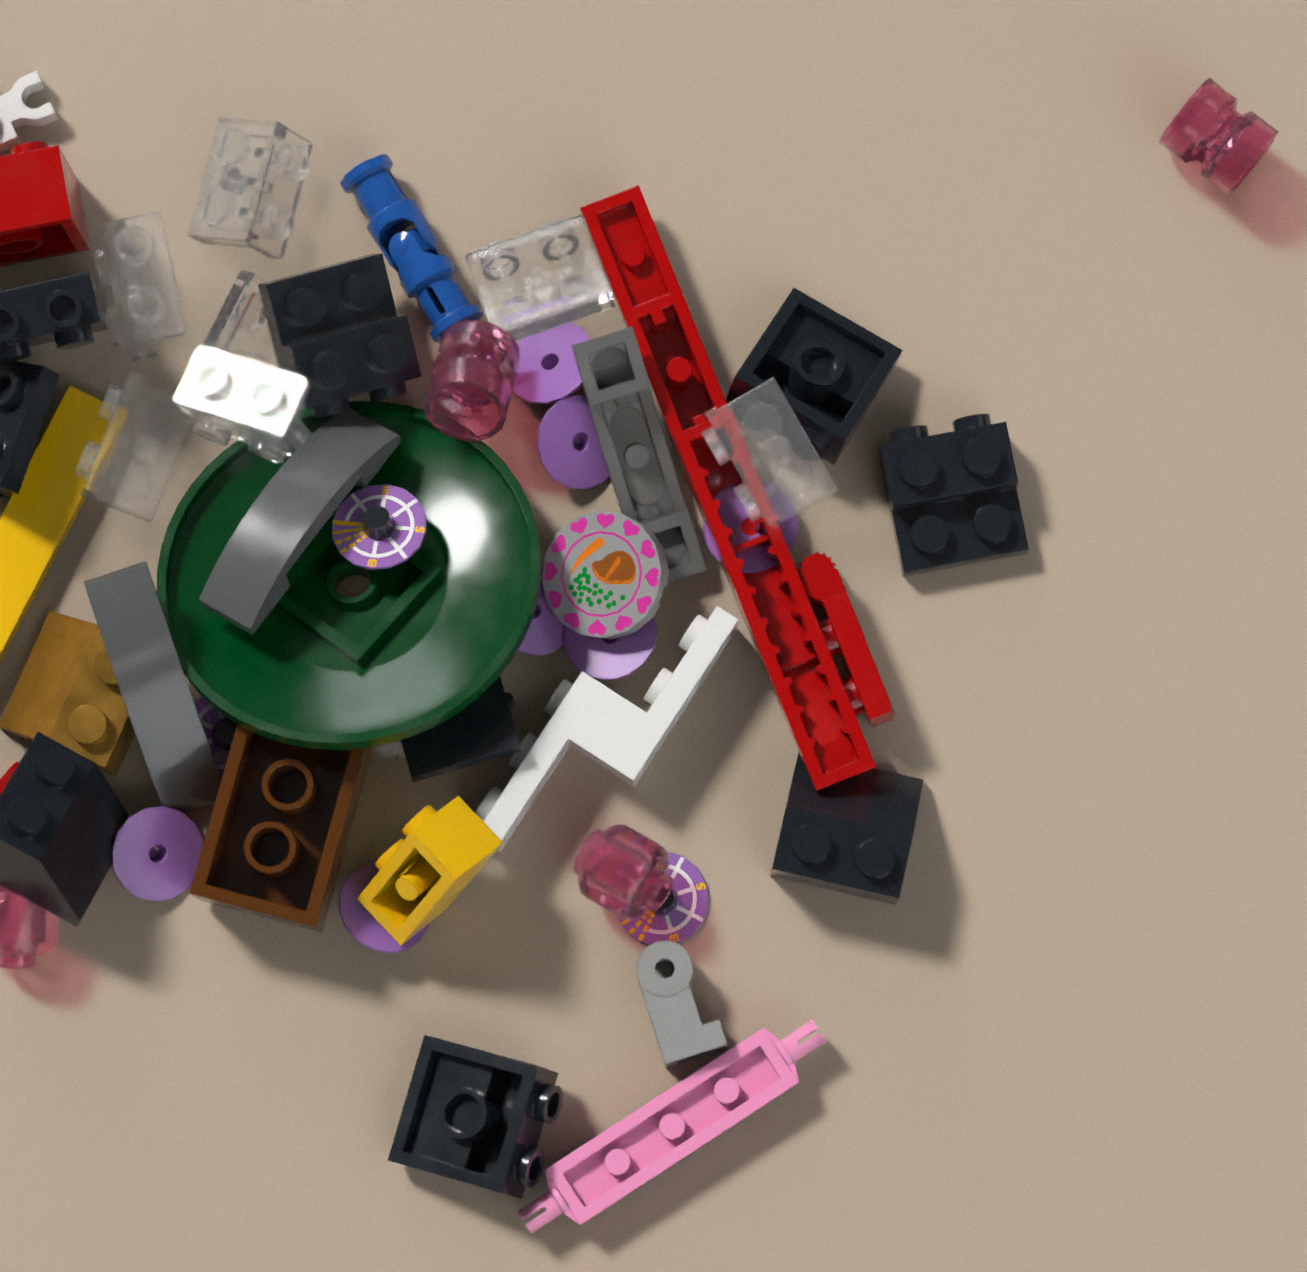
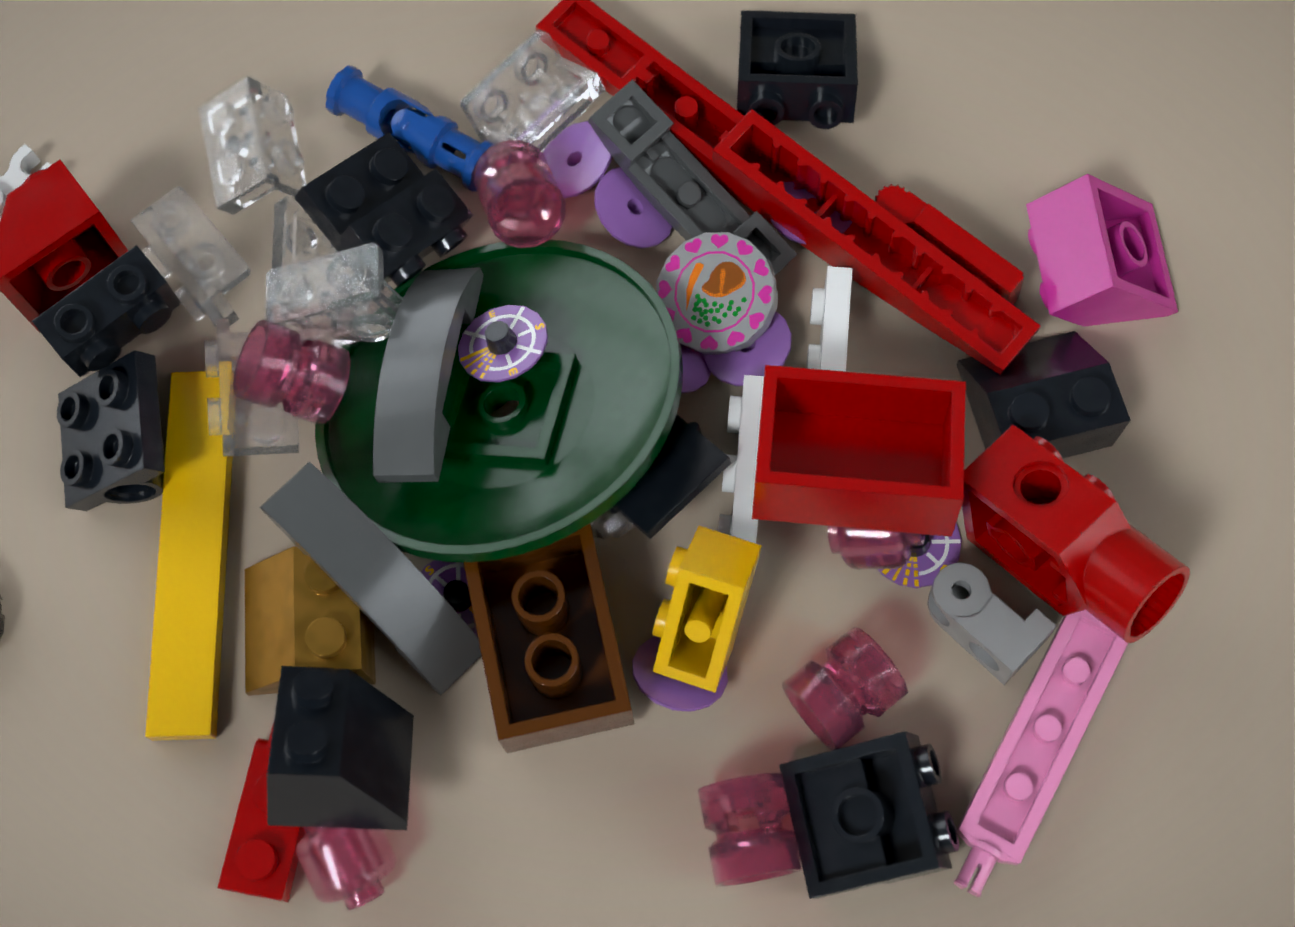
camera: 25 degrees left, 10 degrees down
(156, 853) = (448, 729): medium lavender piece -> none
(170, 455) = (301, 376): none -> clear pink wheel
(361, 1100) = (751, 853): none -> clear pink wheel
(515, 1000) = (846, 687): none -> clear pink wheel
(627, 804) = (860, 450): none -> red piece
(770, 454) = (804, 118): clear bracket -> none
(775, 975) = (1067, 537): none -> red brick
(953, 495) = (960, 101): black plate -> none
(987, 723) = (1099, 254): none -> dark pink slope

